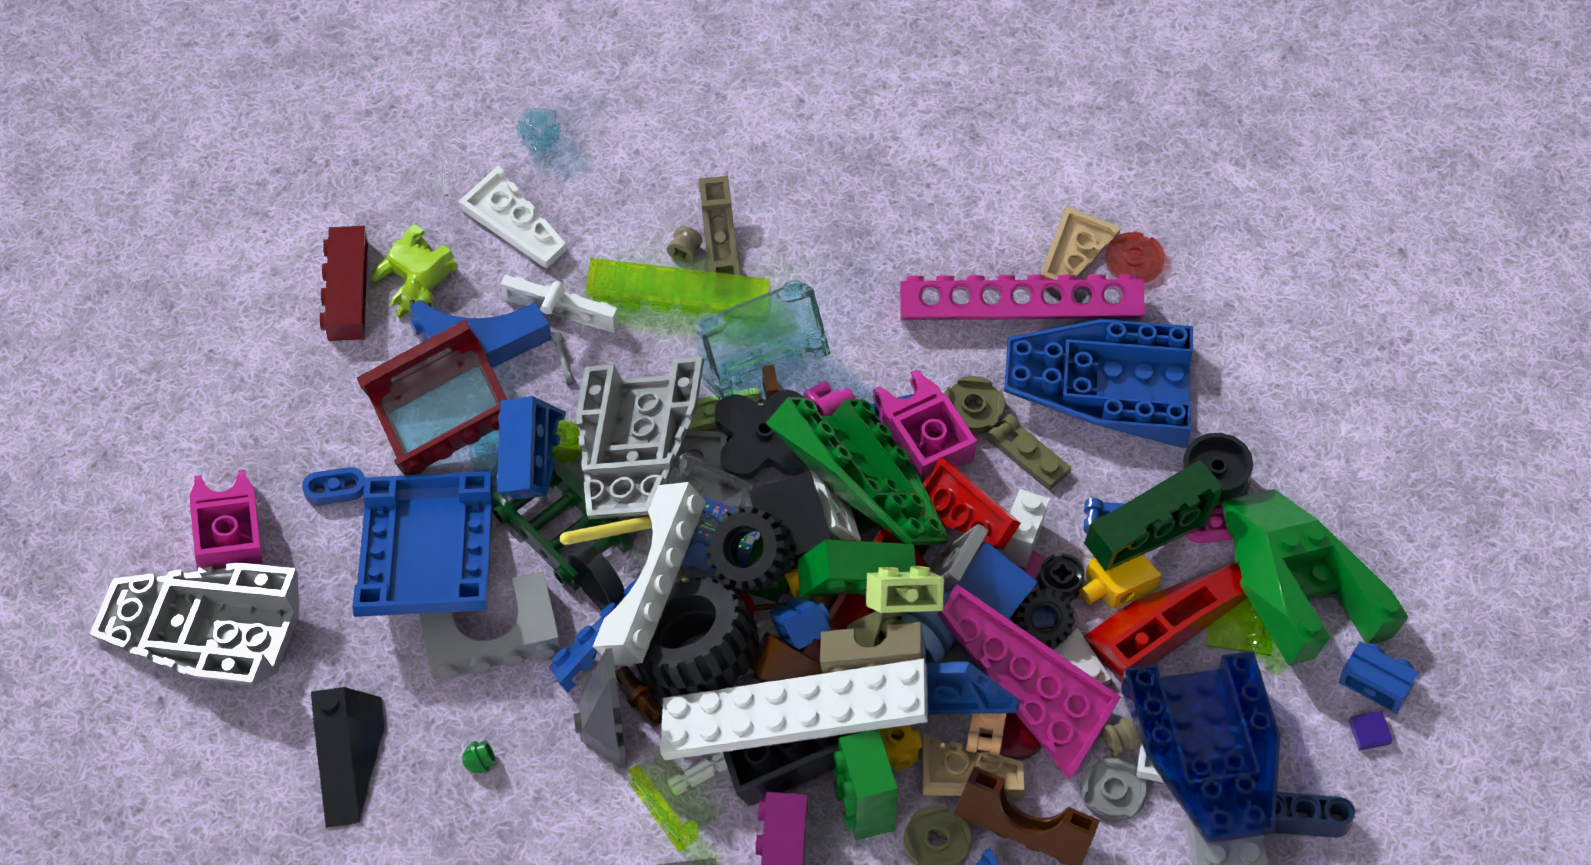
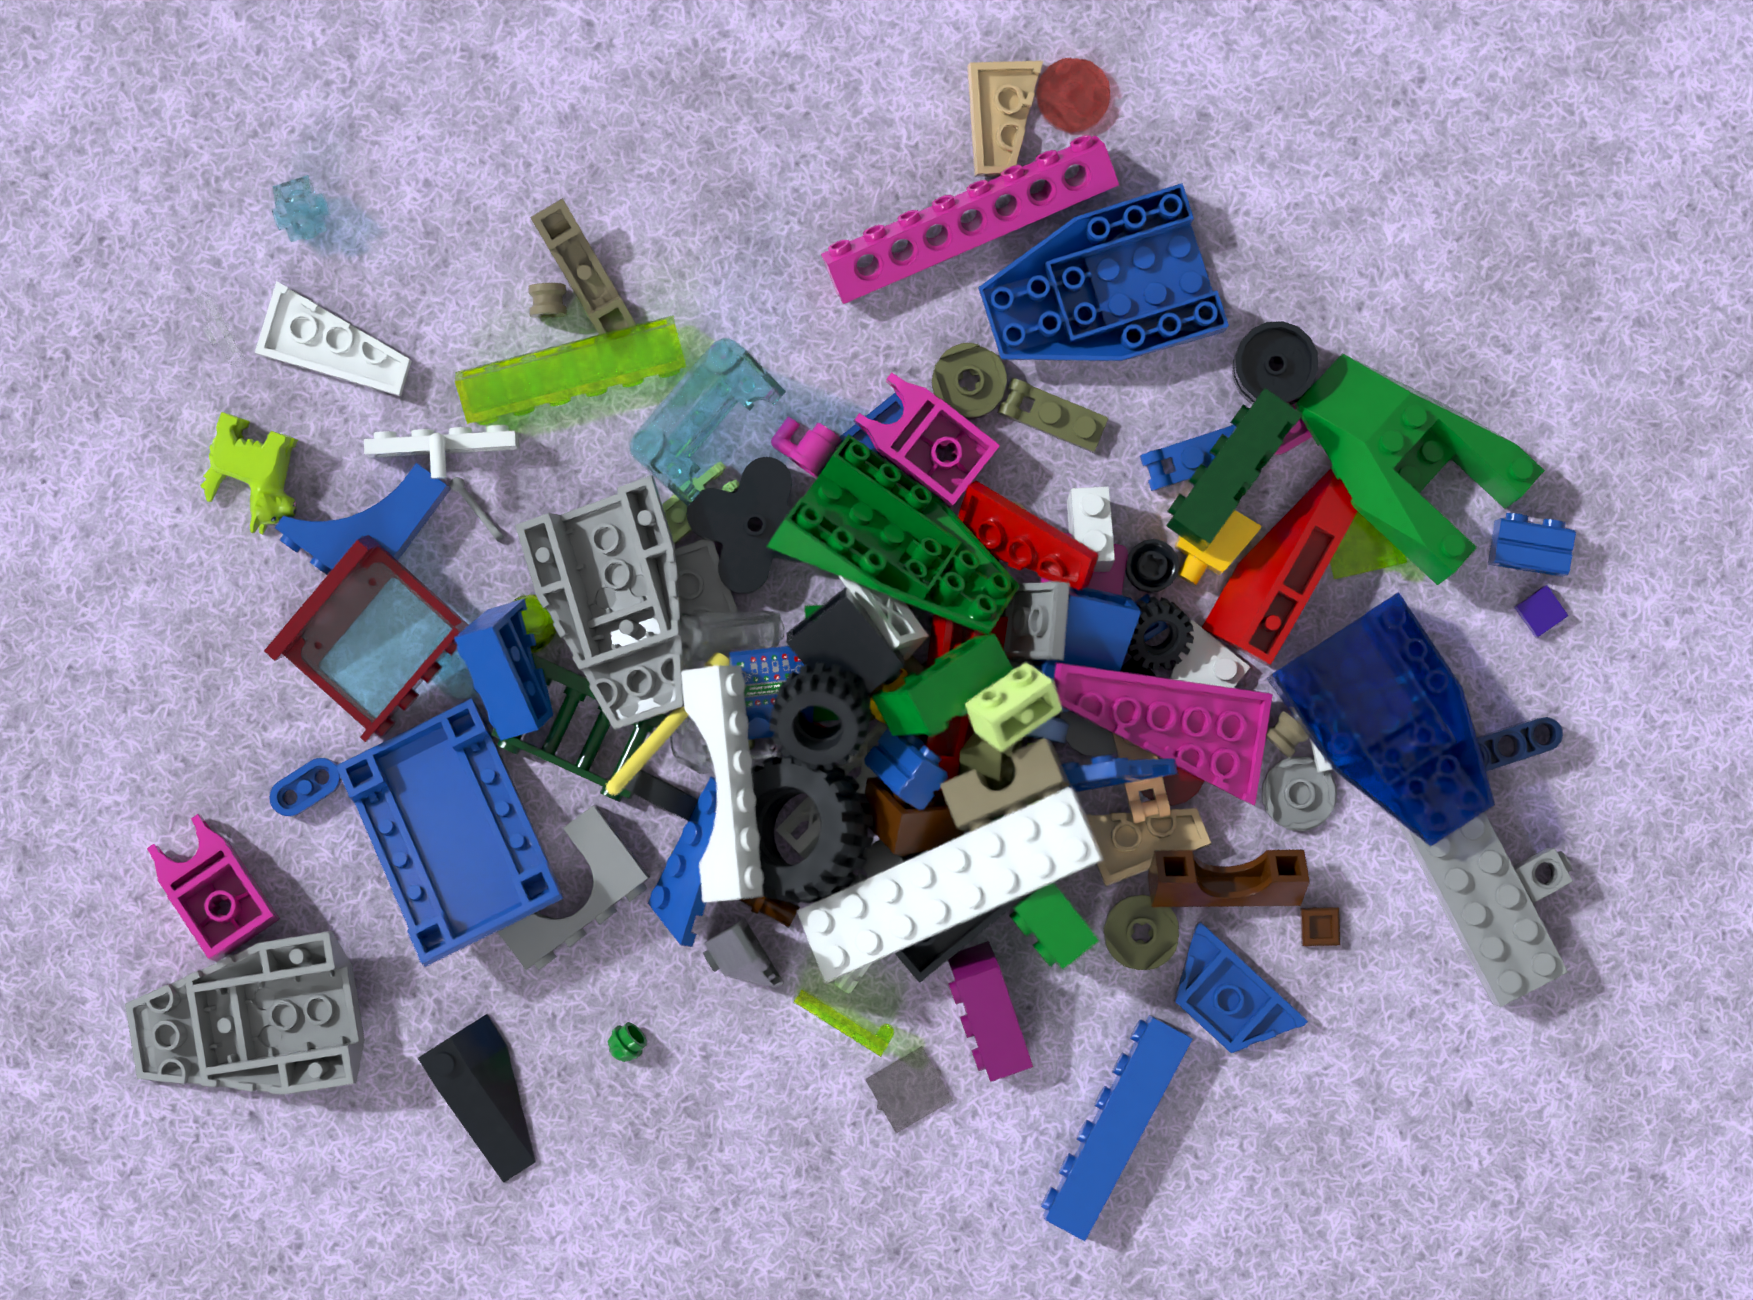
camera: 25 degrees left, 30 degrees up
(345, 283) = (180, 519): dark red brick -> none
(769, 380) = (731, 453): reddish brown tile -> none

